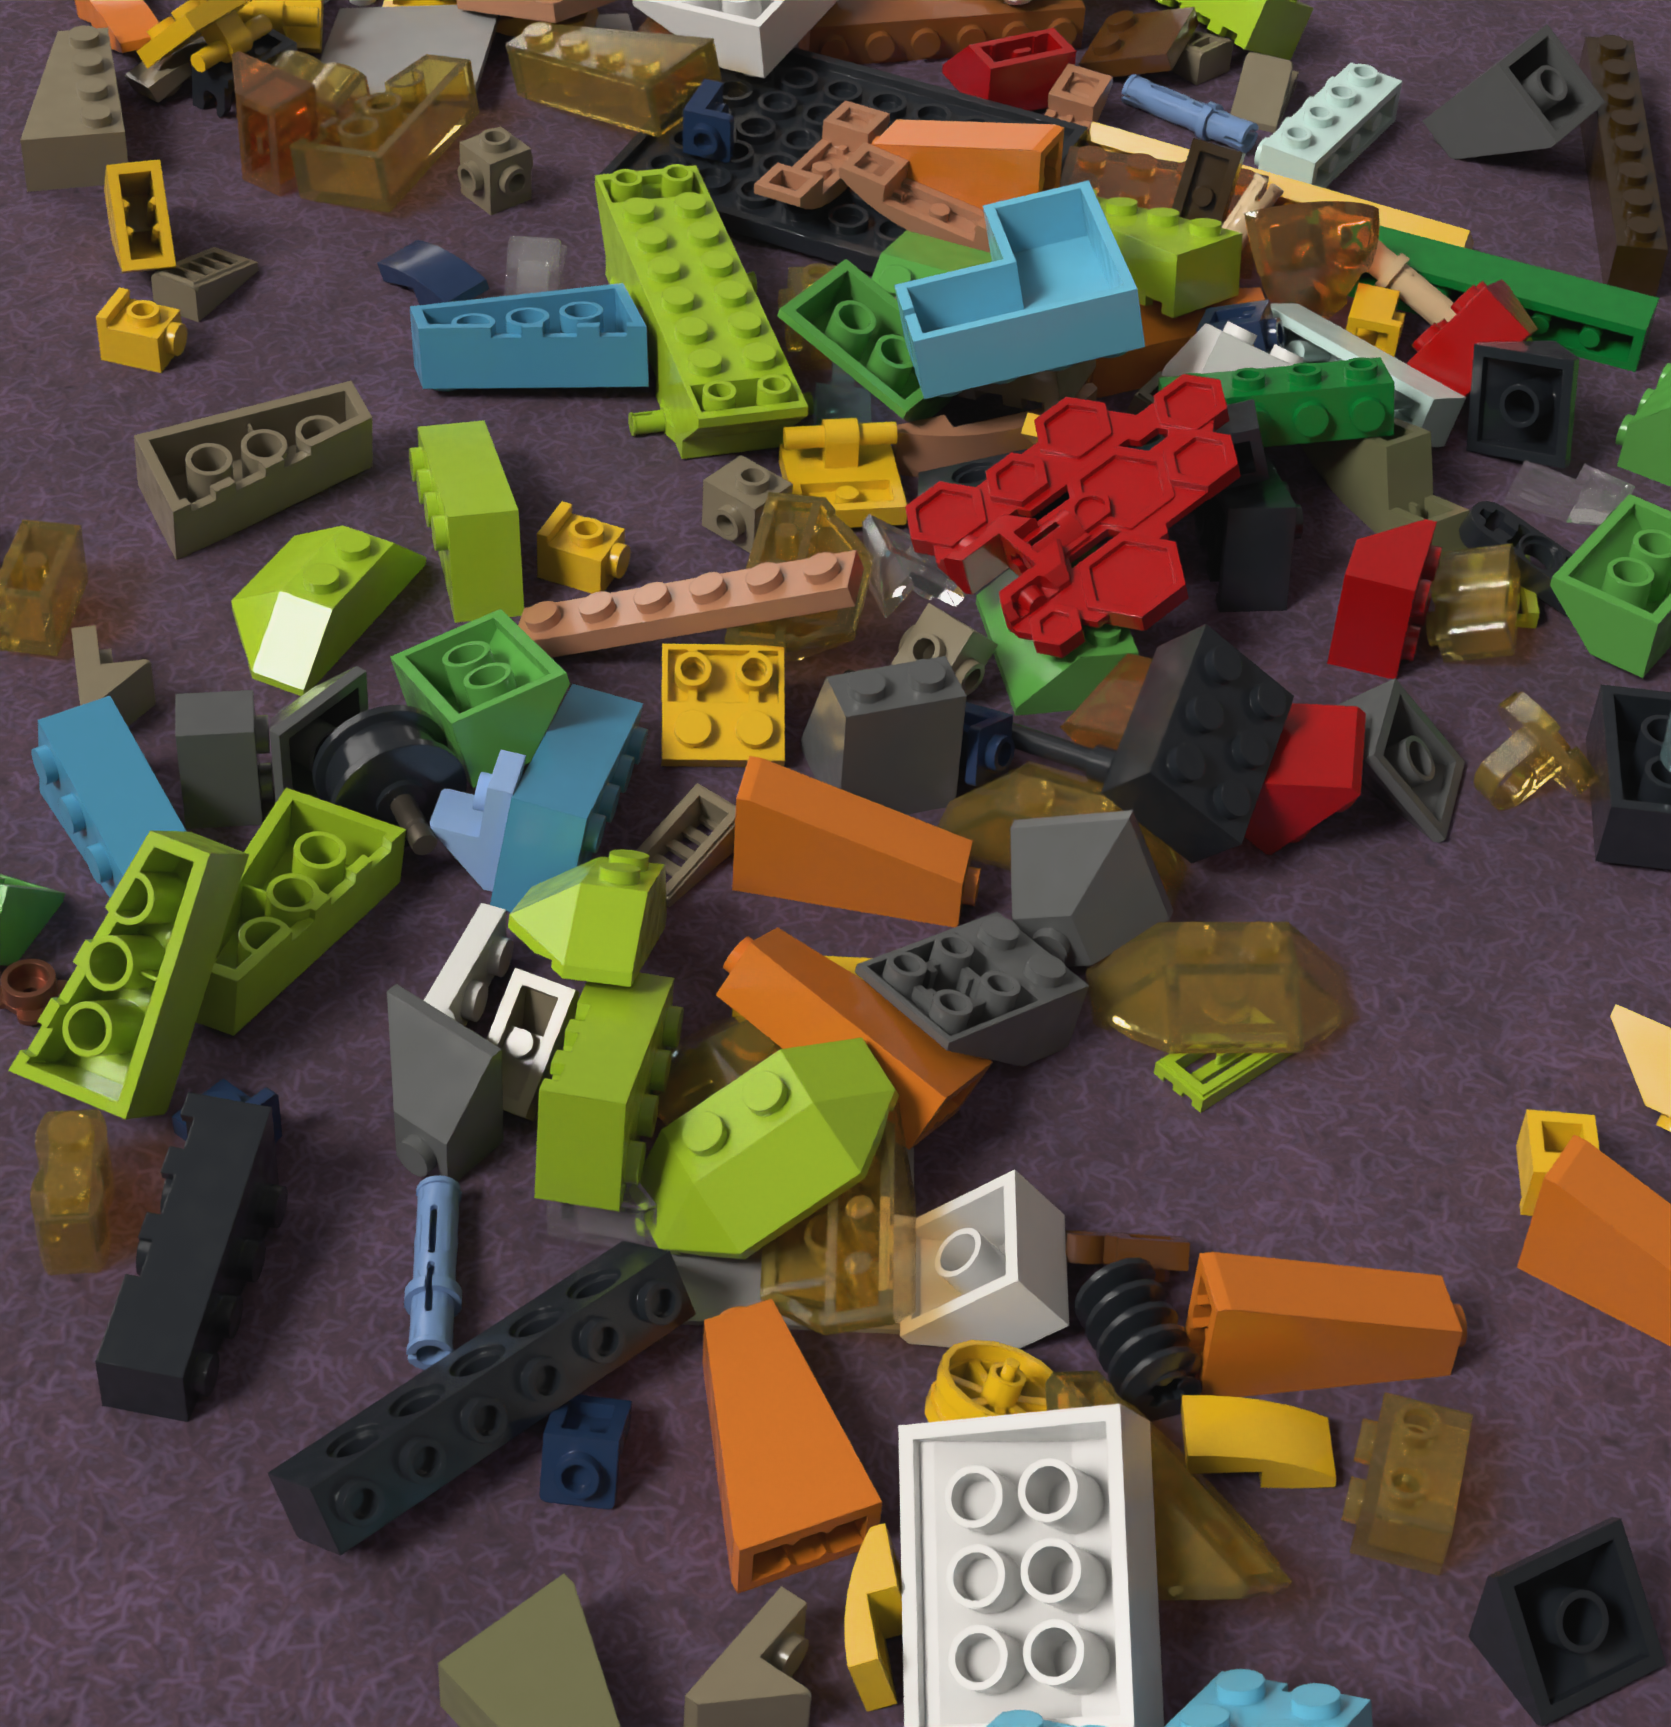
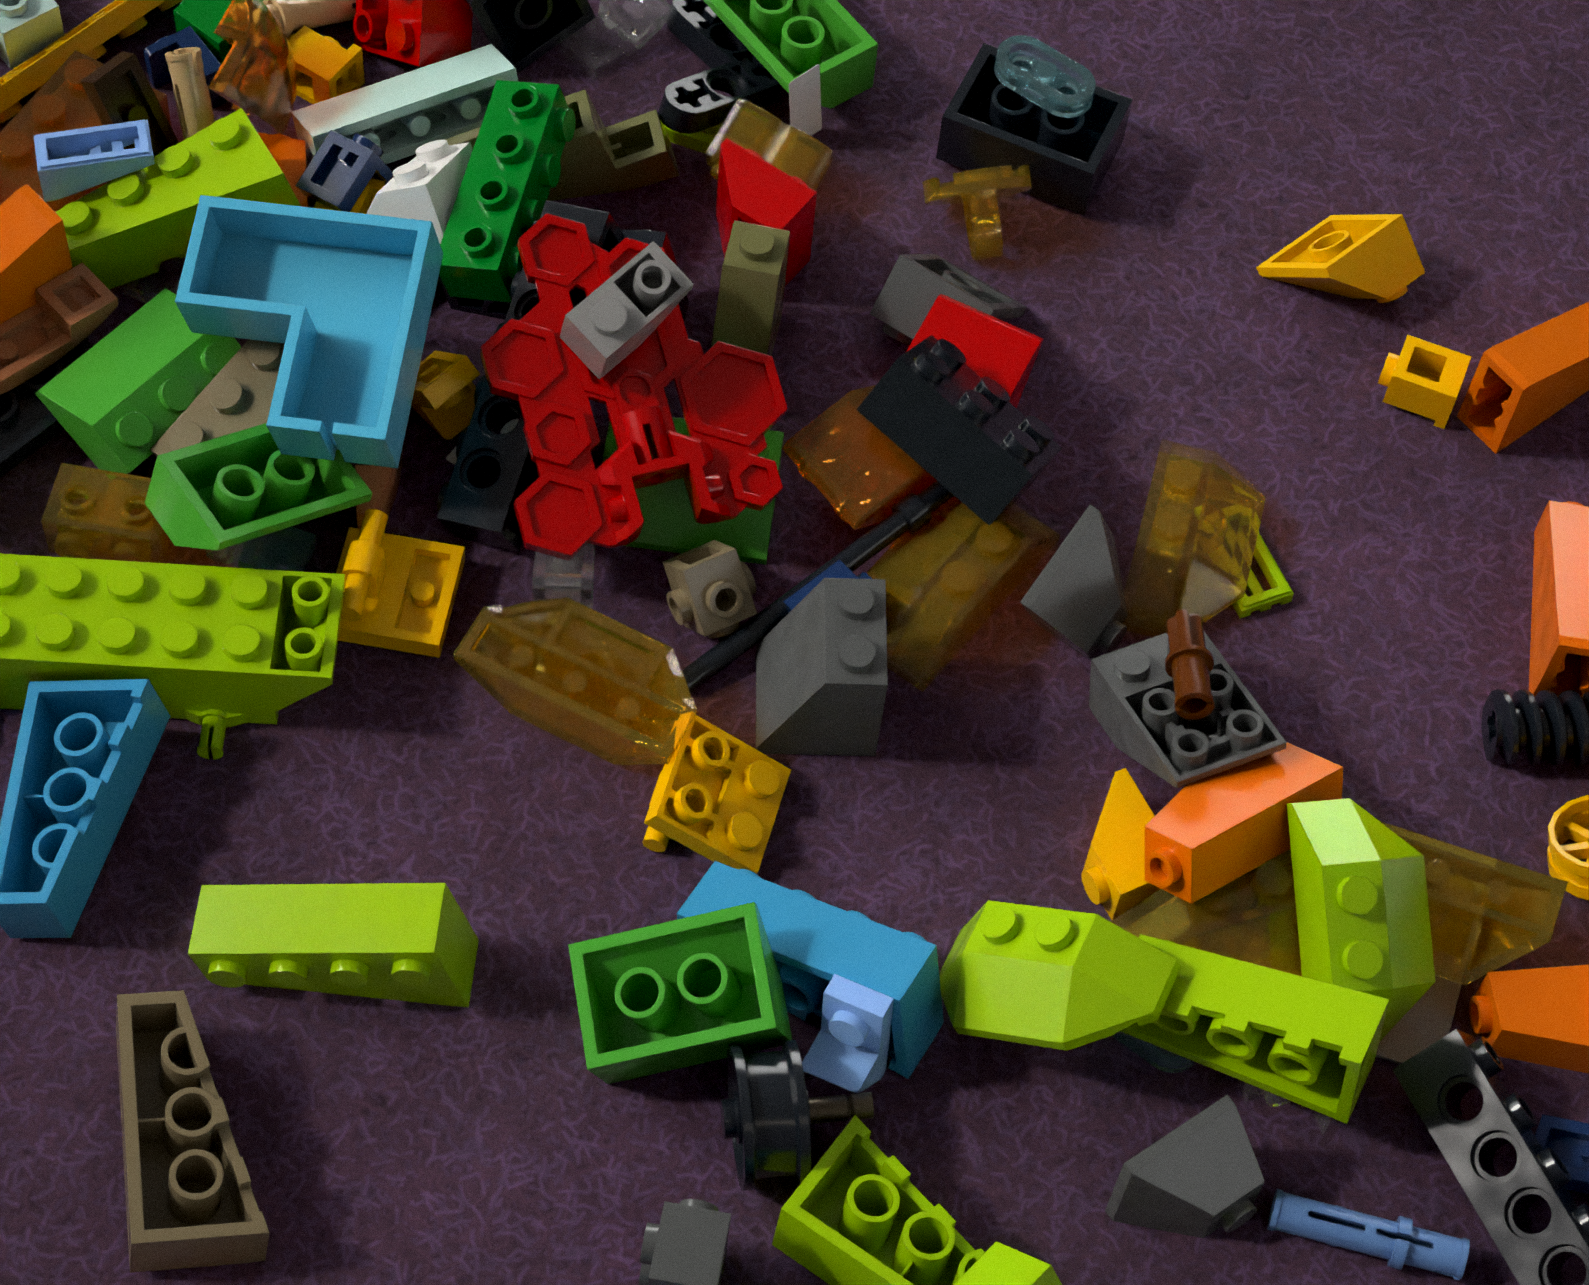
camera: 75 degrees left, 15 degrees up
(307, 723) = (663, 1160): dark grey slope -> none
(317, 602) = (413, 1125): lime wedge -> none
(476, 959) = (1040, 1128): white plate -> none
(529, 1032) = (1138, 1085): dark tan slope -> none
(580, 551) = (406, 861): yellow brick -> none
(695, 604) = (603, 780): nougat plate -> none
(696, 808) = (852, 882): dark tan slope -> none
(736, 499) = (418, 682): dark tan brick -> none
(845, 851) = (956, 757): orange slope -> none
(990, 1268) = (1464, 798): white slope -> none
(1002, 947) = (1189, 665): none -> reddish brown axle
(1134, 441) = (624, 310): none -> light grey slope
(1136, 175) = (90, 156): none -> light blue slope
(1162, 1251) = (1452, 695): reddish brown plate -> none
(1280, 601) = (752, 287): none -> olive slope
(1556, 609) = (806, 101): none -> white sticker

